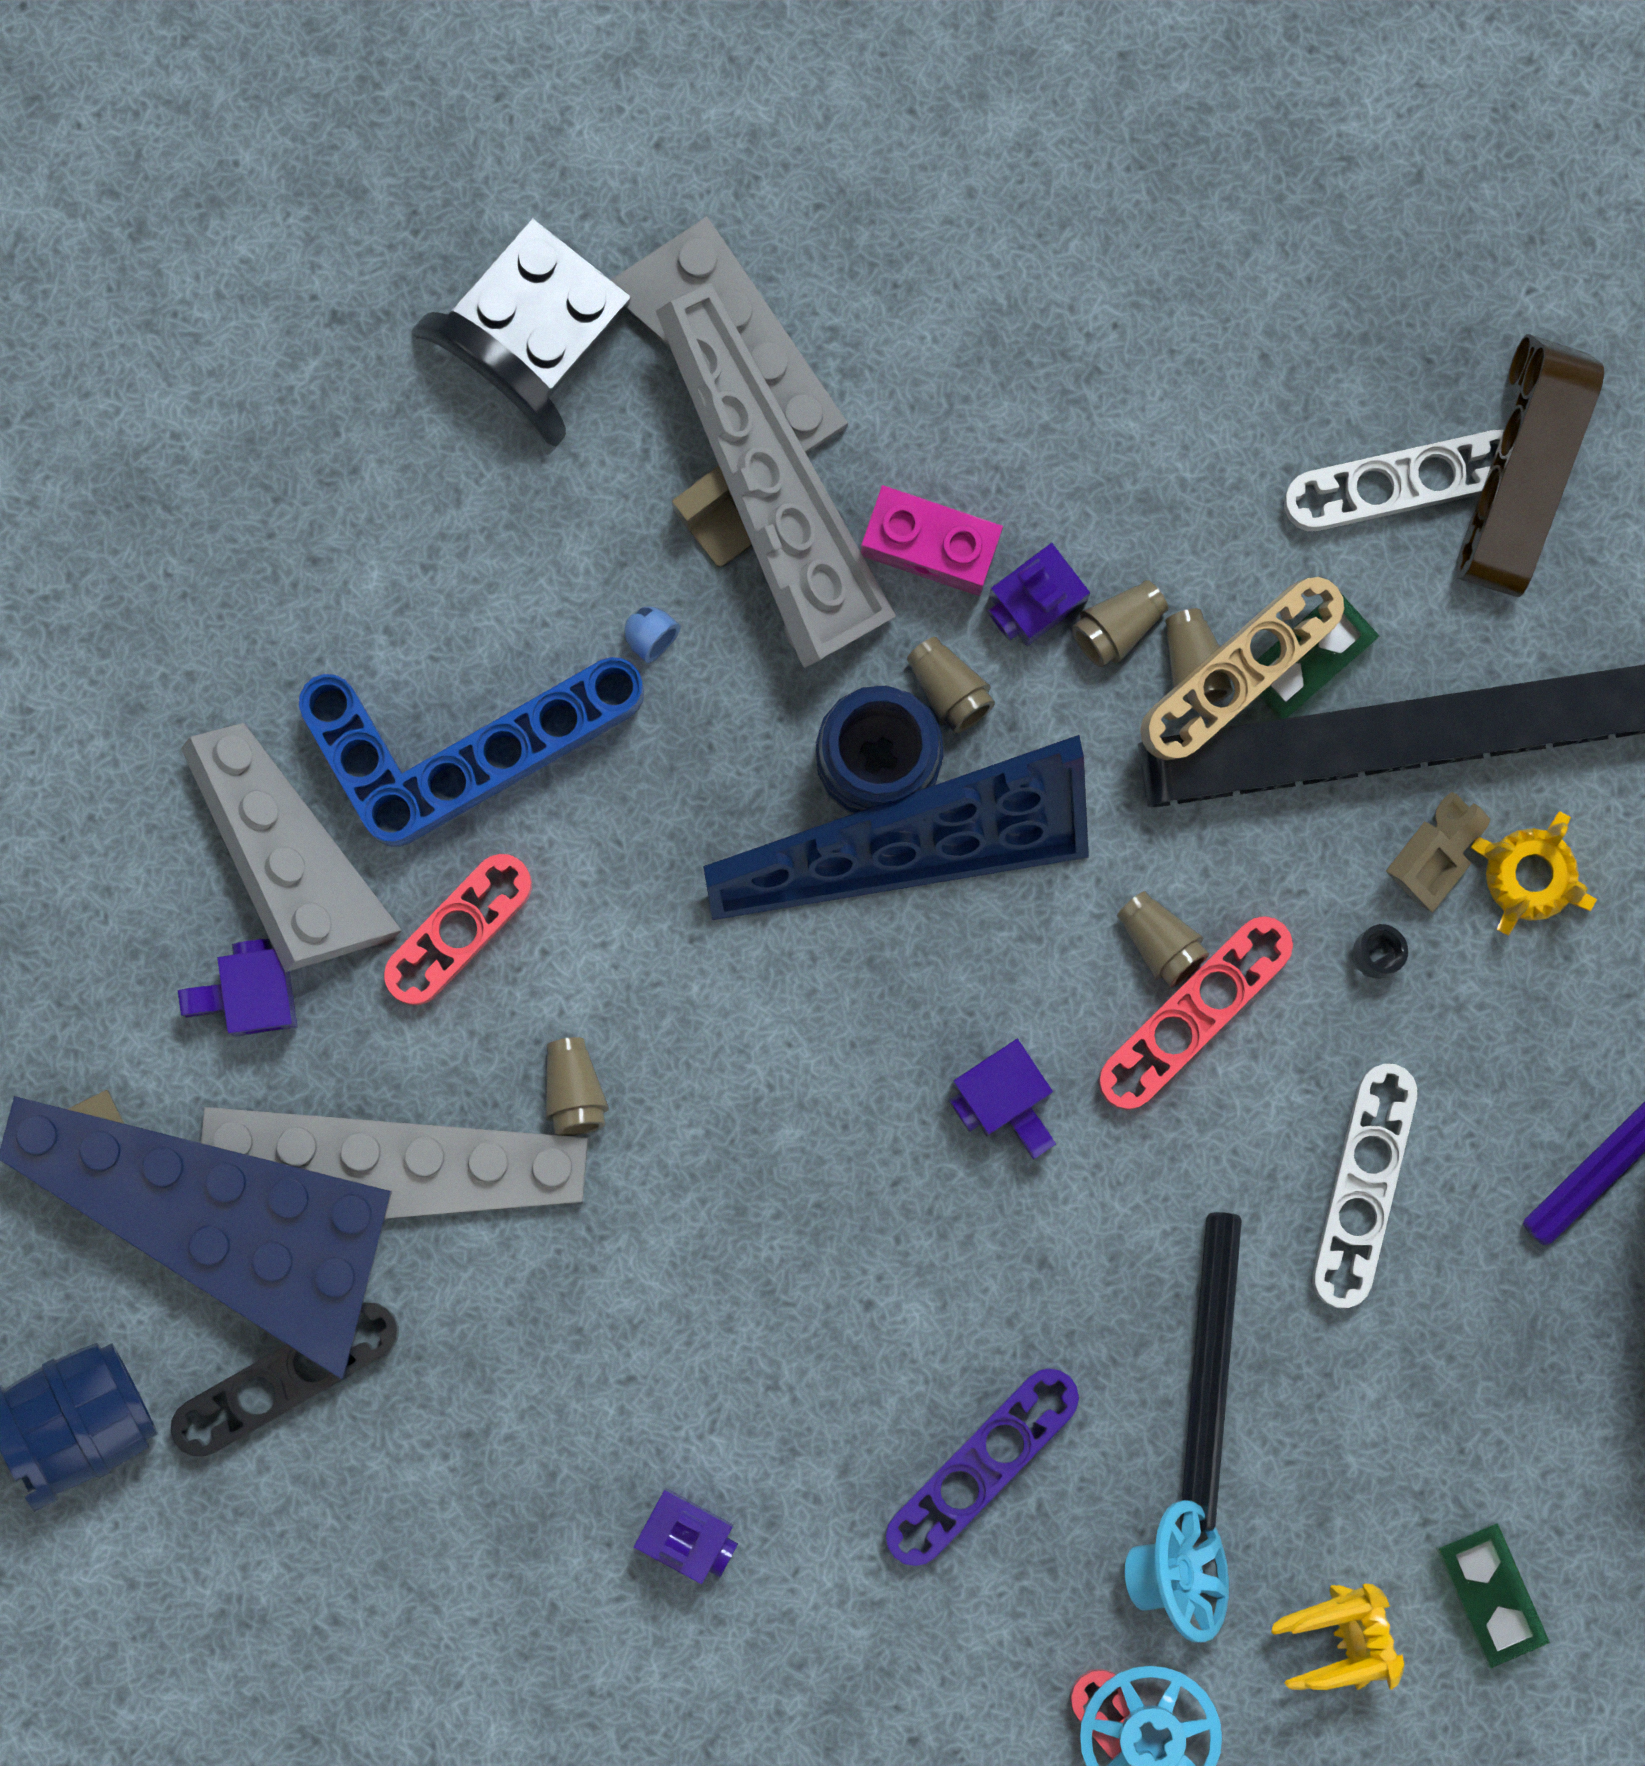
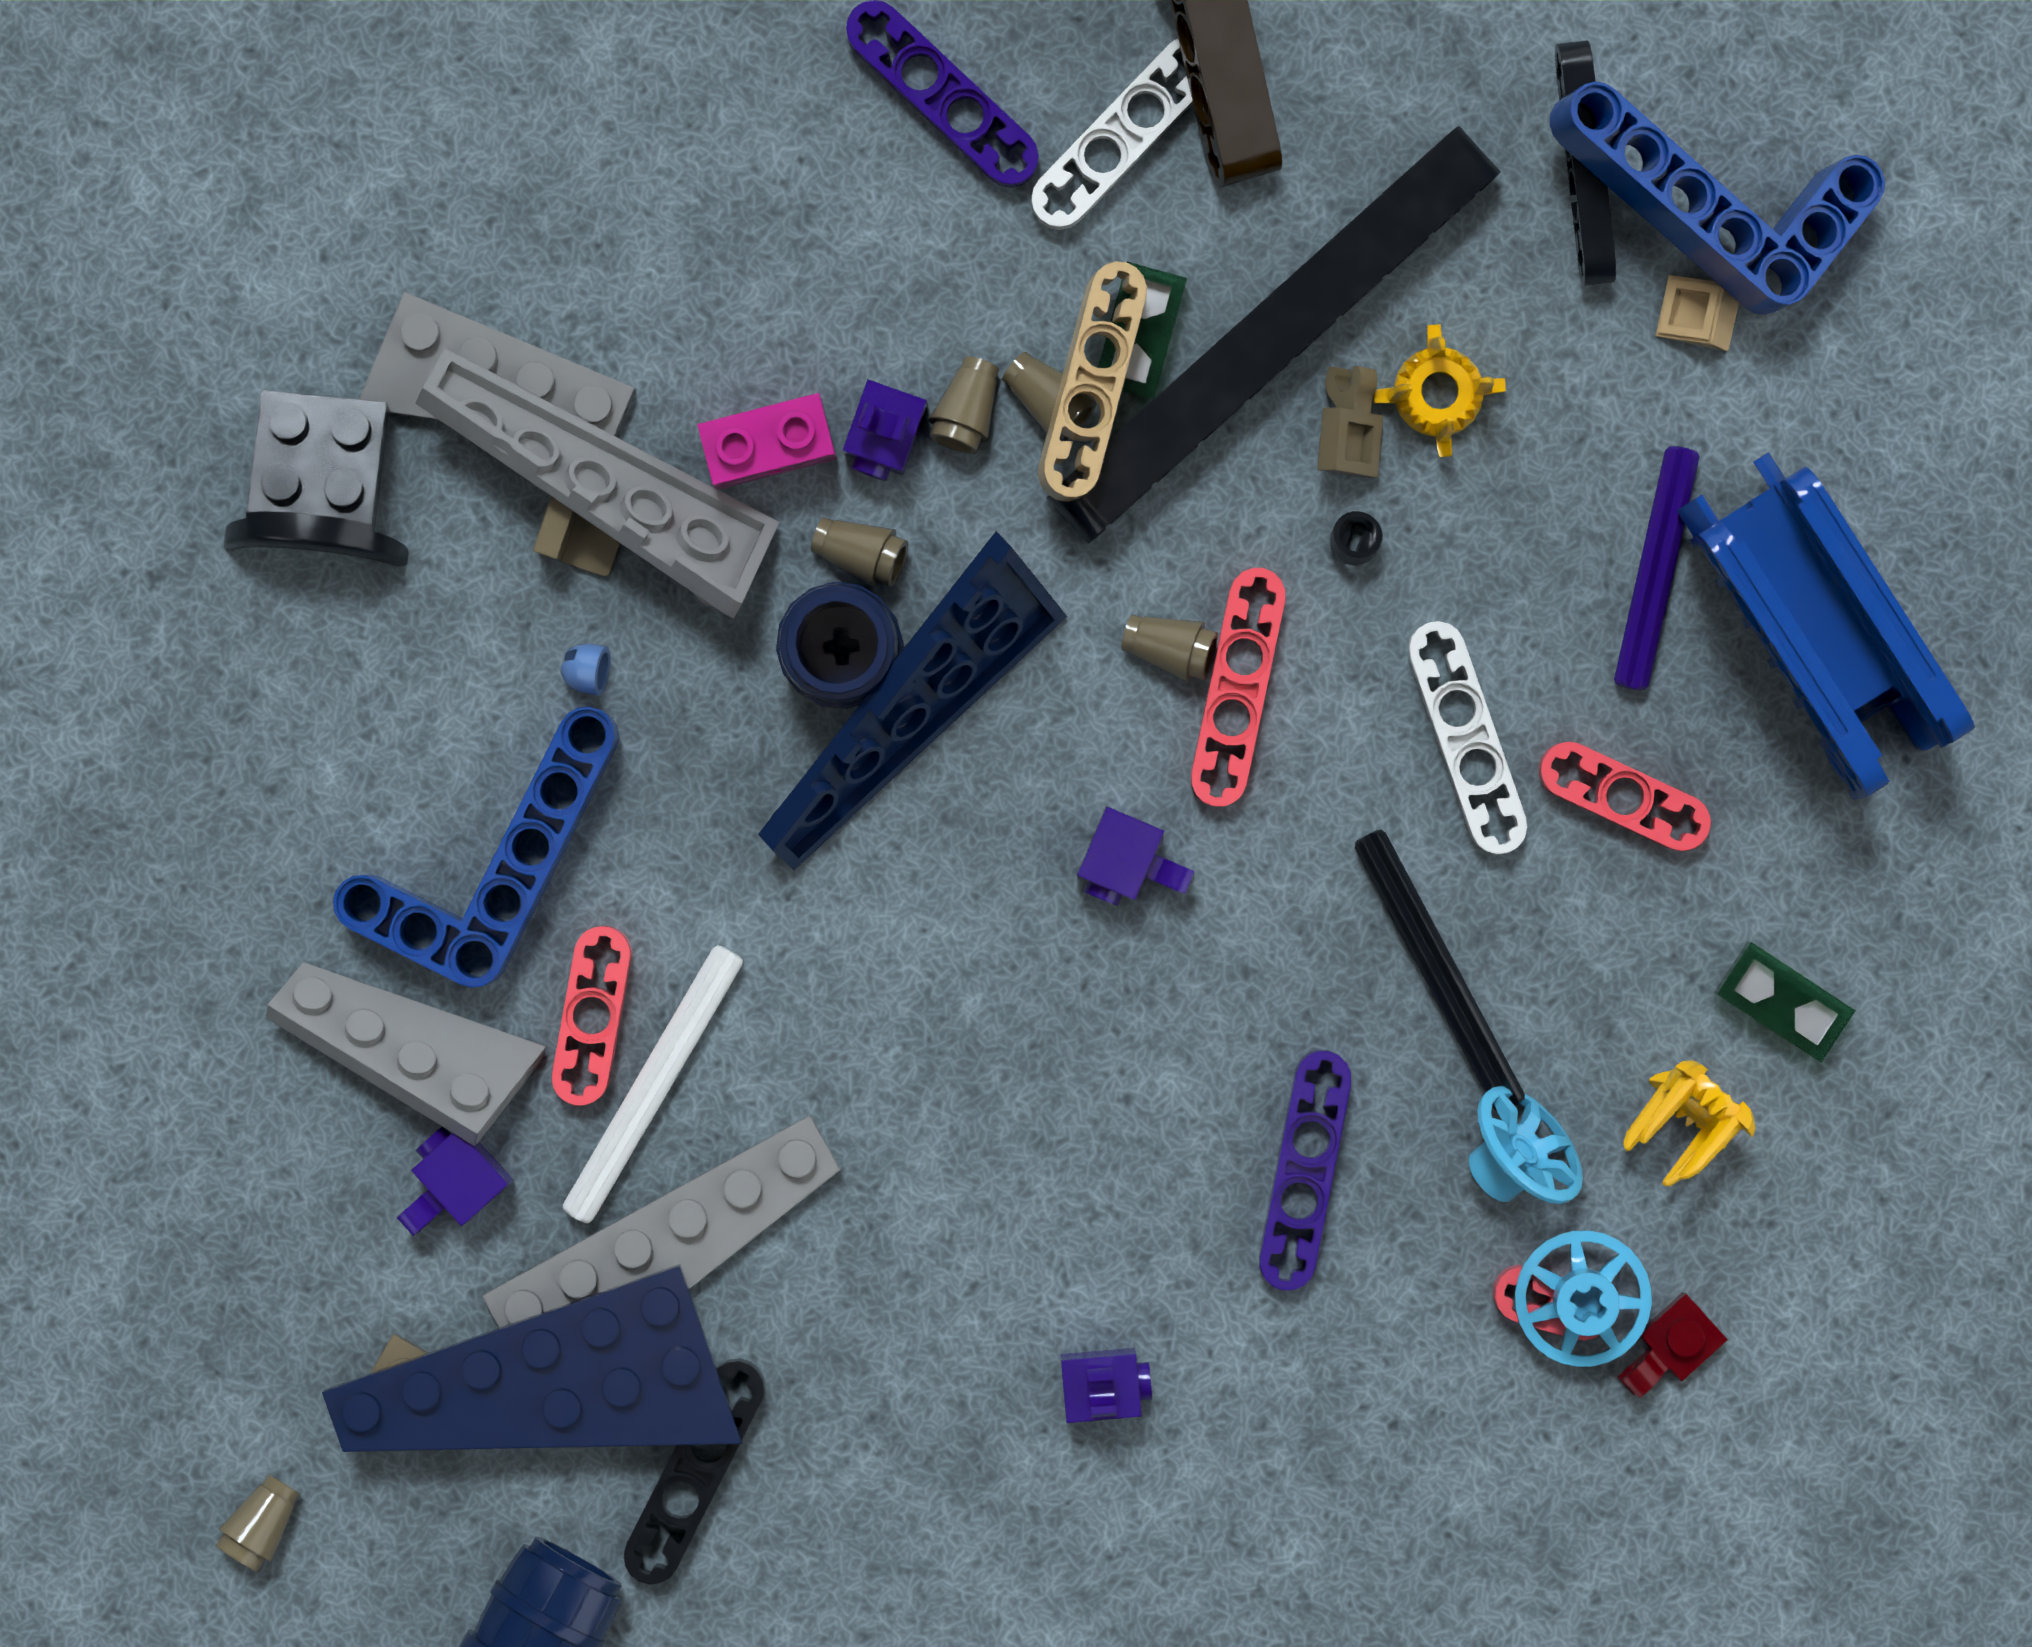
camera: 30 degrees left, 5 degrees up
(470, 1023) = (652, 1084): none -> white axle
(573, 1089) = (772, 1084): dark tan cone -> none
(1281, 346) = (947, 89): none -> dark purple beam
(1480, 1374) = (1659, 830): none -> coral beam

